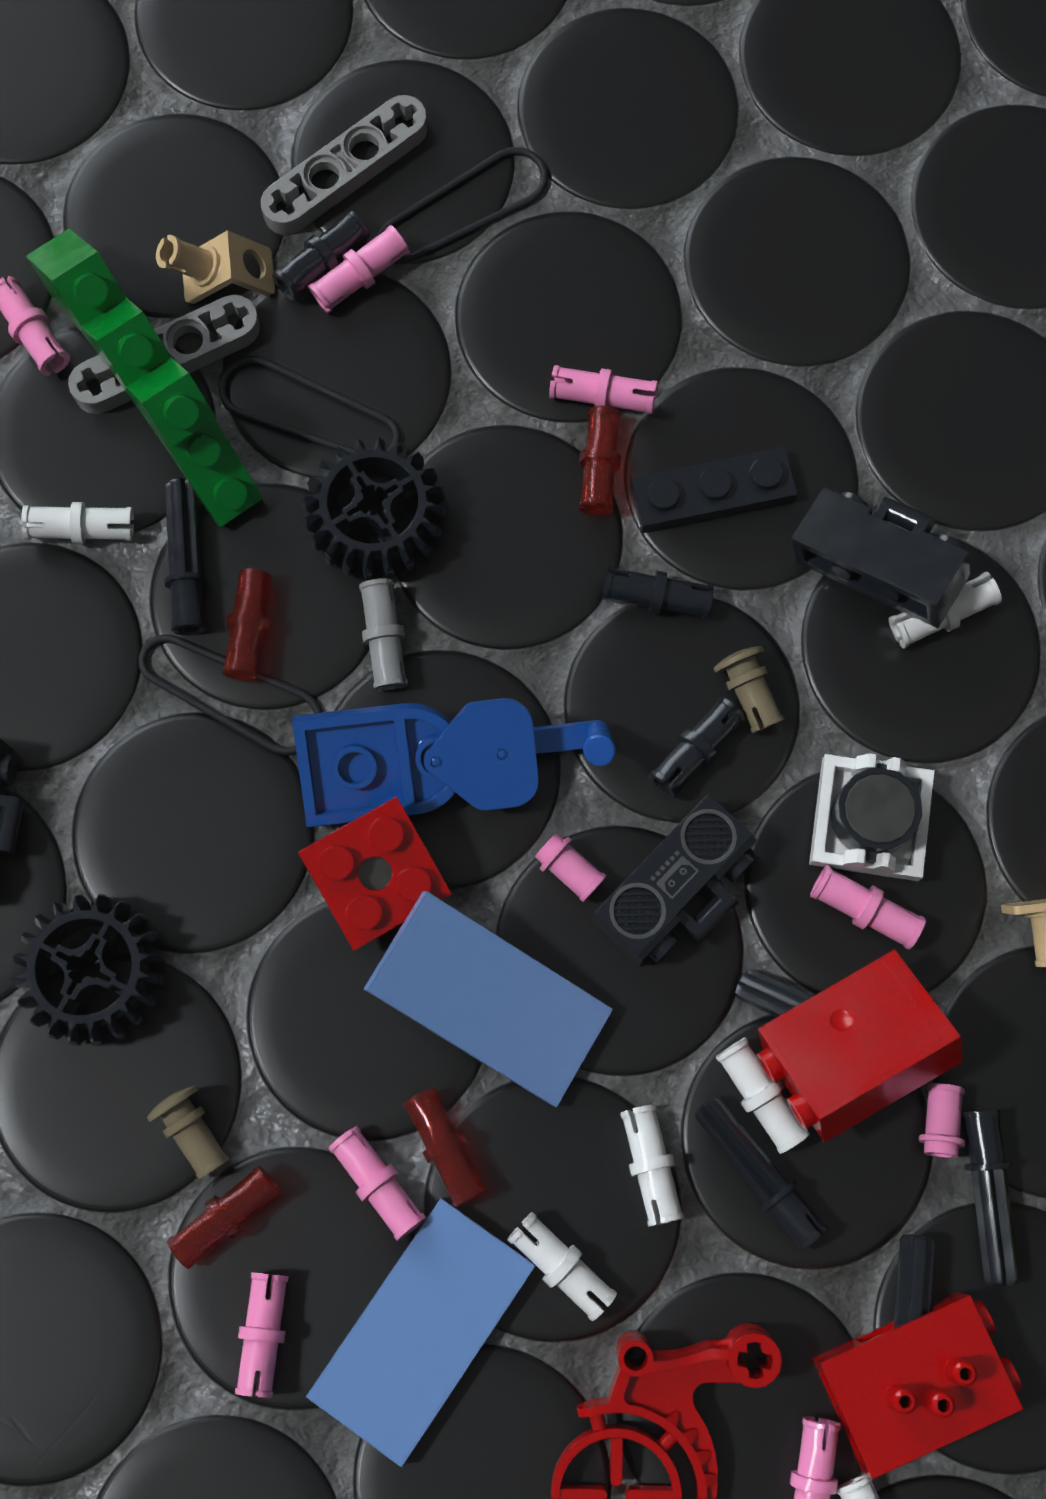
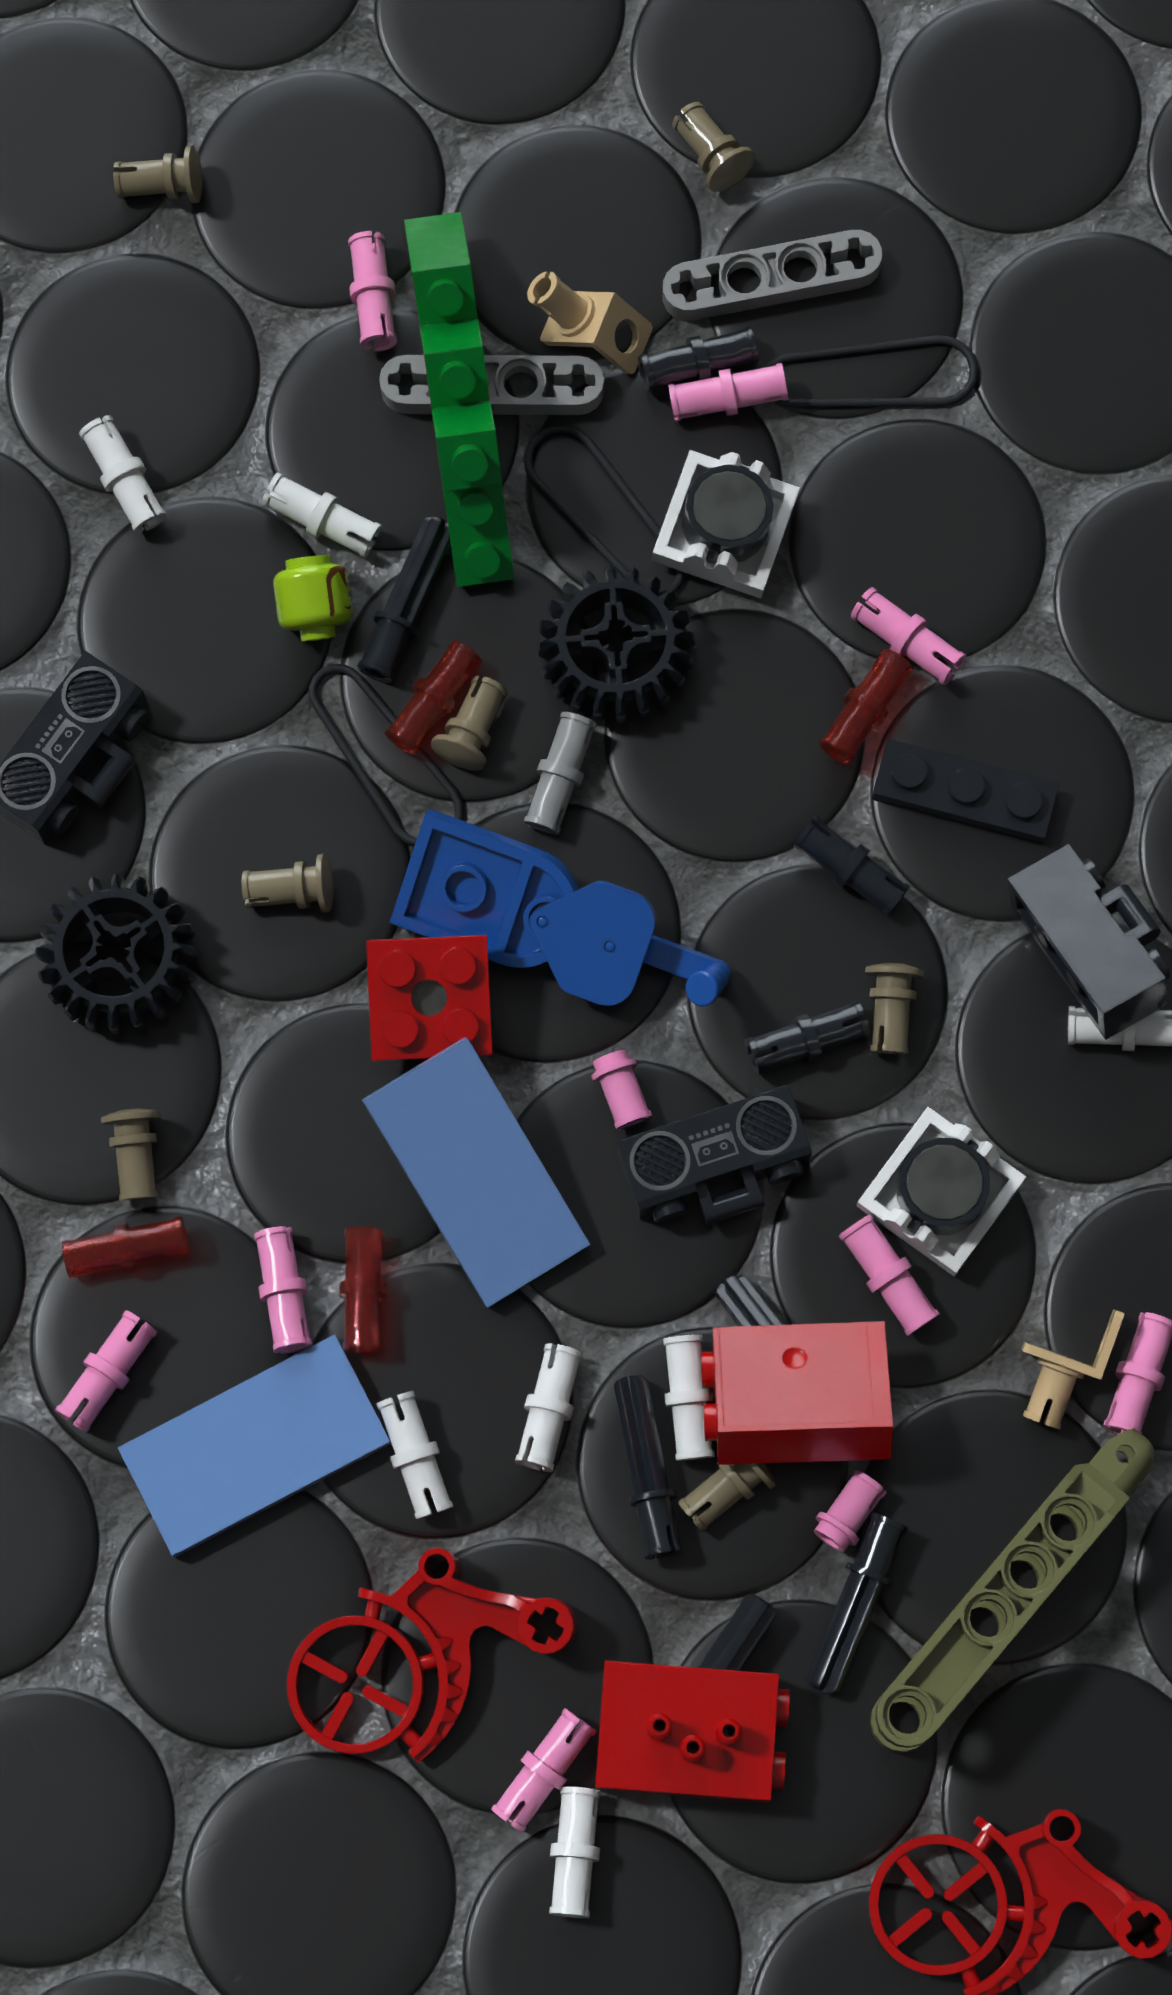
camera: 30 degrees right, 0 degrees up
(105, 591) = (313, 597): none -> lime head
(209, 837) = (291, 885): none -> dark tan pin
(253, 90) = (717, 152): none -> dark tan pin
(291, 639) = (470, 728): none -> dark tan pin
(411, 369) = (725, 522): none -> piece
(832, 1161) = (724, 1490): none -> dark tan pin

